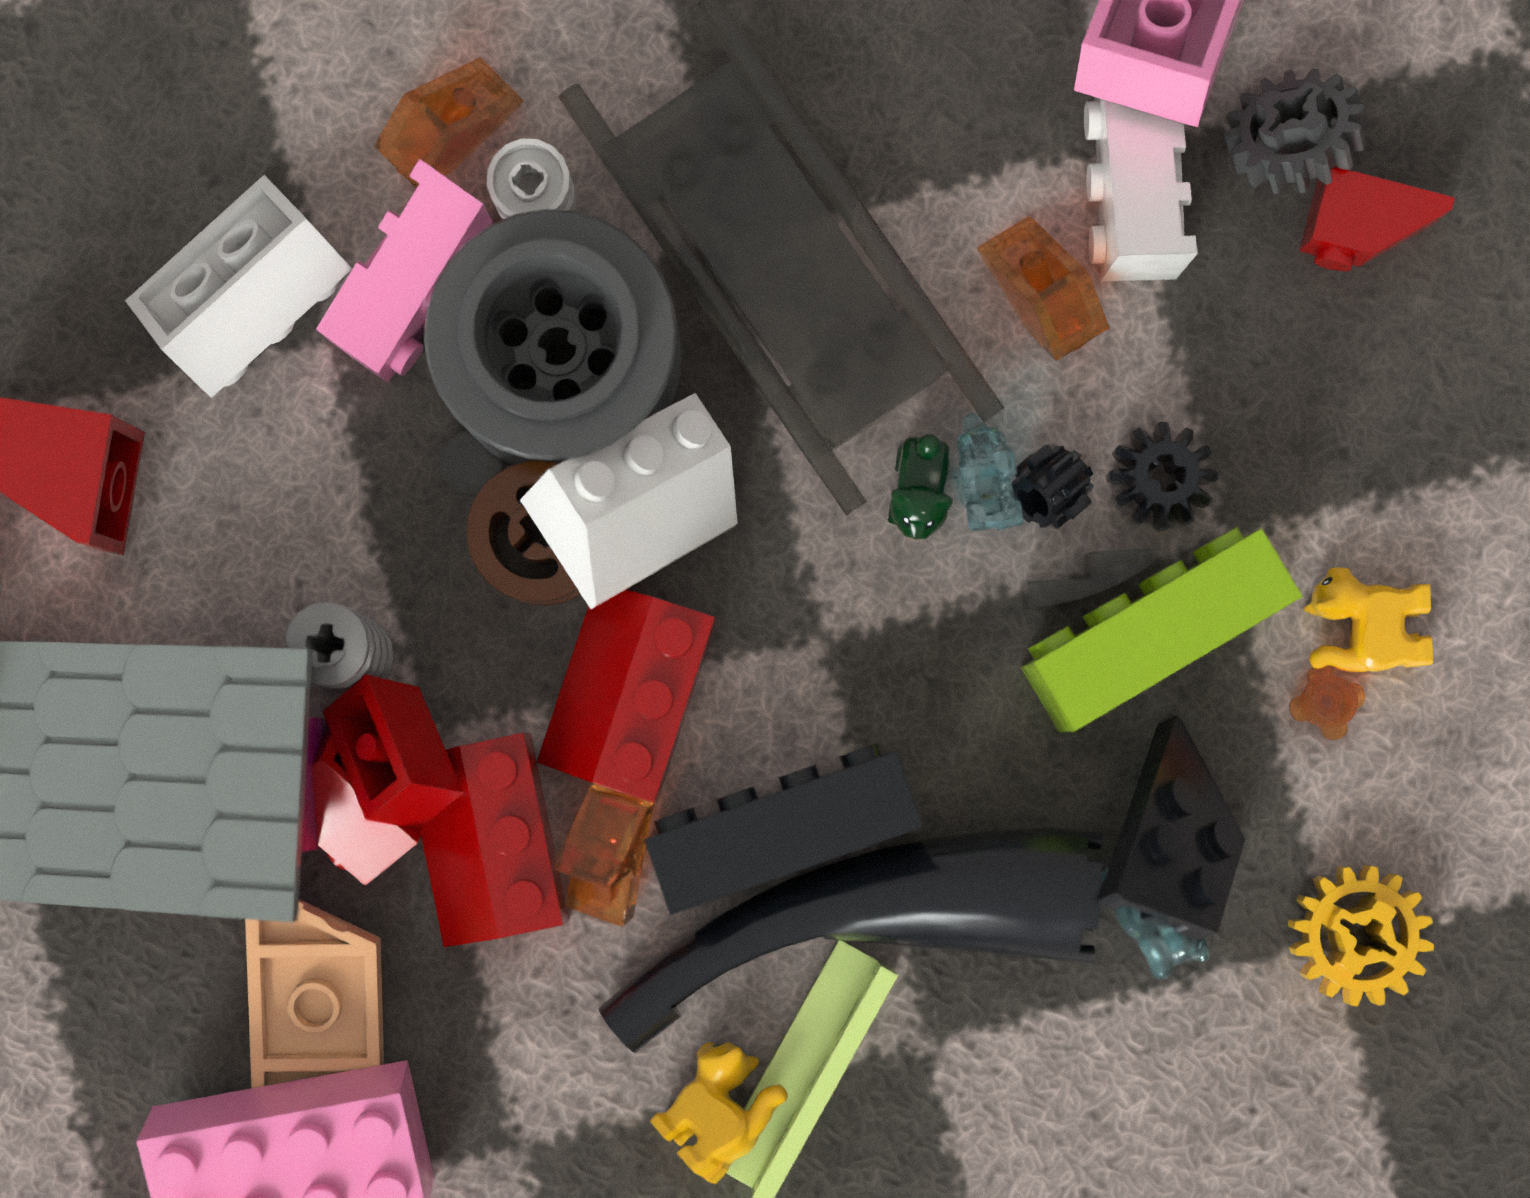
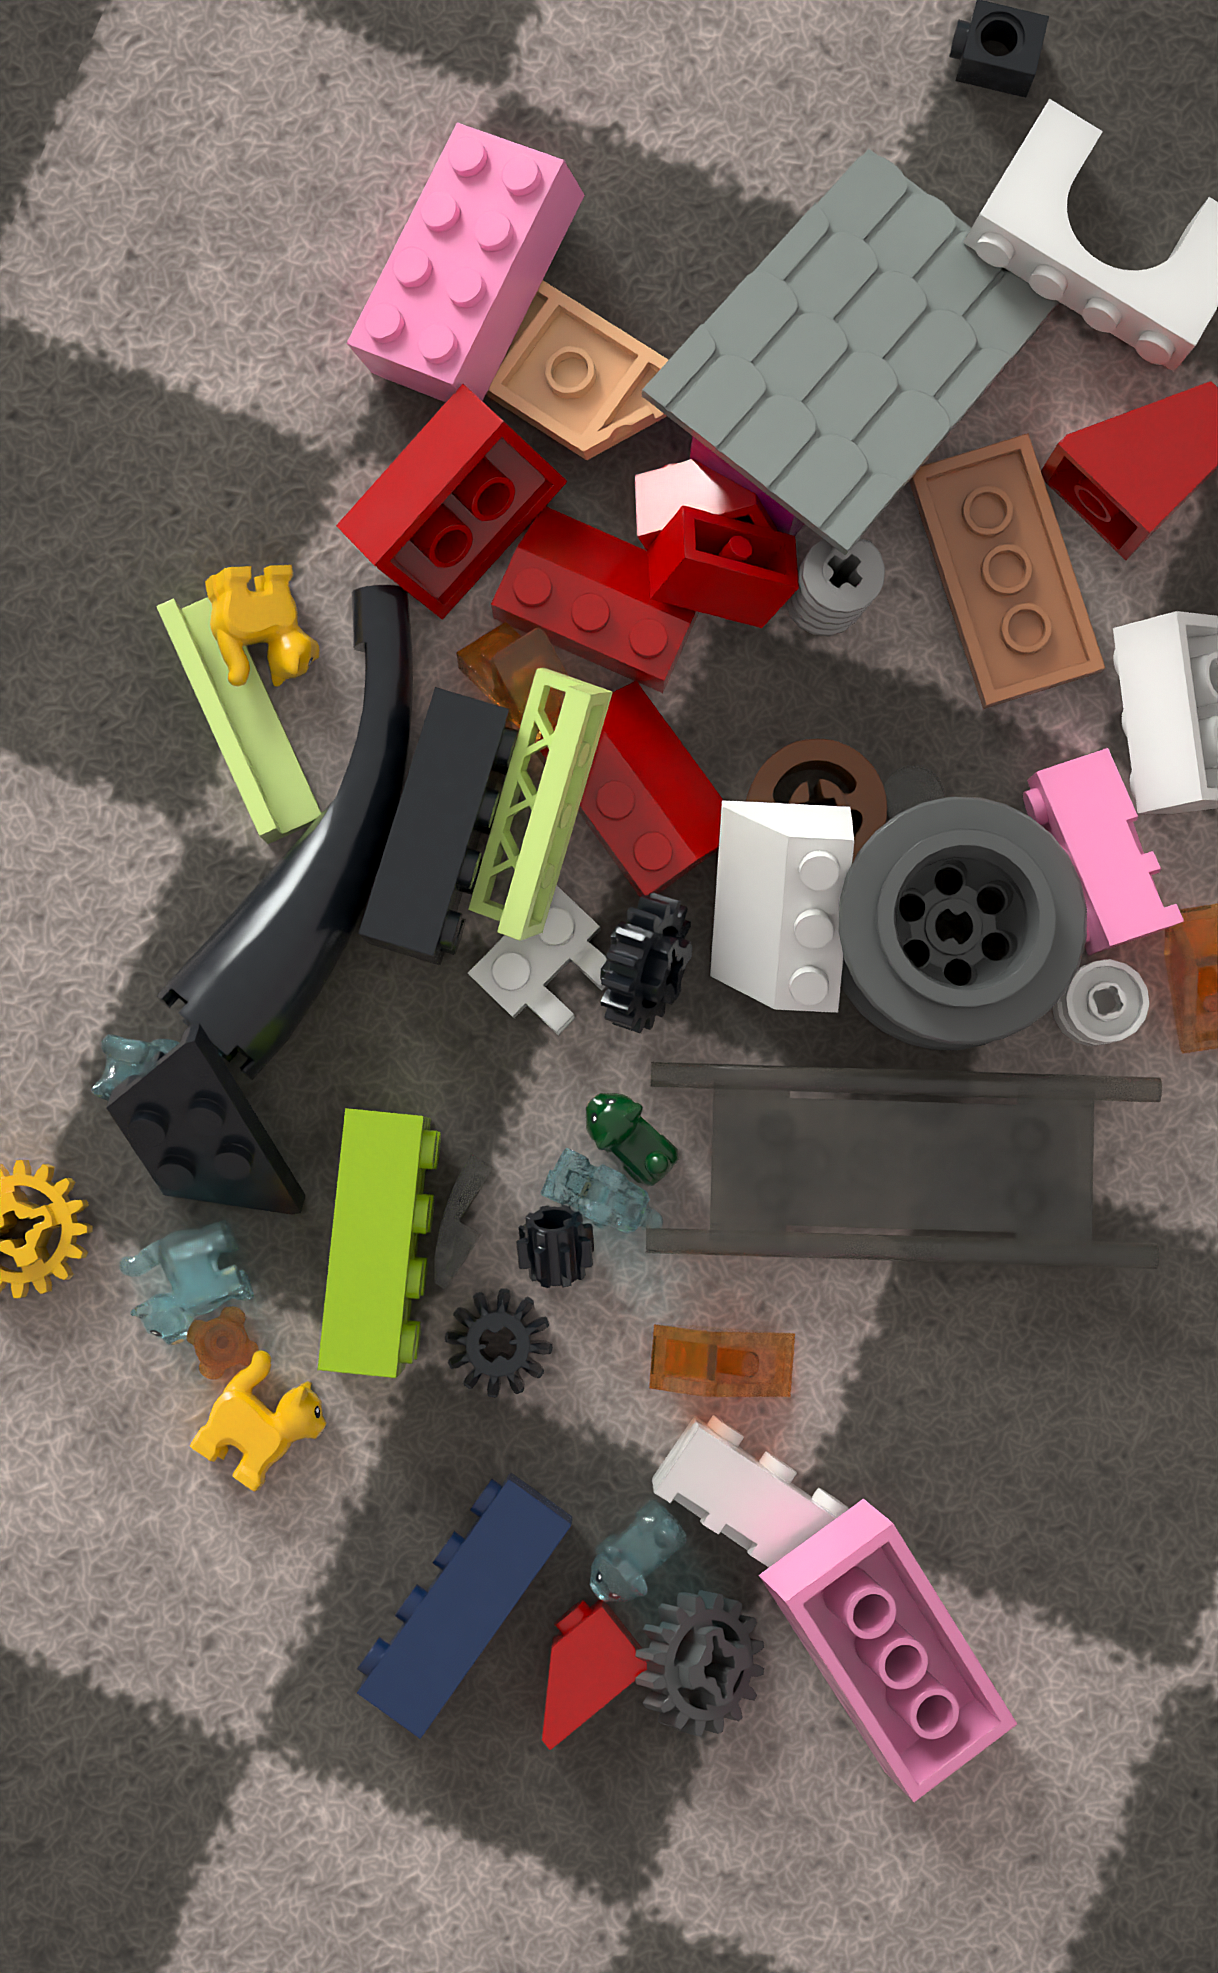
camera: 120 degrees right, 0 degrees up
(224, 521) = (1006, 571): none -> nougat plate
(500, 1023) = (451, 503): none -> red slope
(697, 746) = (552, 806): none -> yellowish green fence
(769, 578) = (646, 962): none -> black gear
(824, 680) = (519, 970): none -> white plate
(1249, 243) = (640, 1549): none -> clear light blue animal
(1292, 763) = (196, 1282): none -> clear light blue animal
(1390, 351) = (464, 1604): none -> dark blue brick

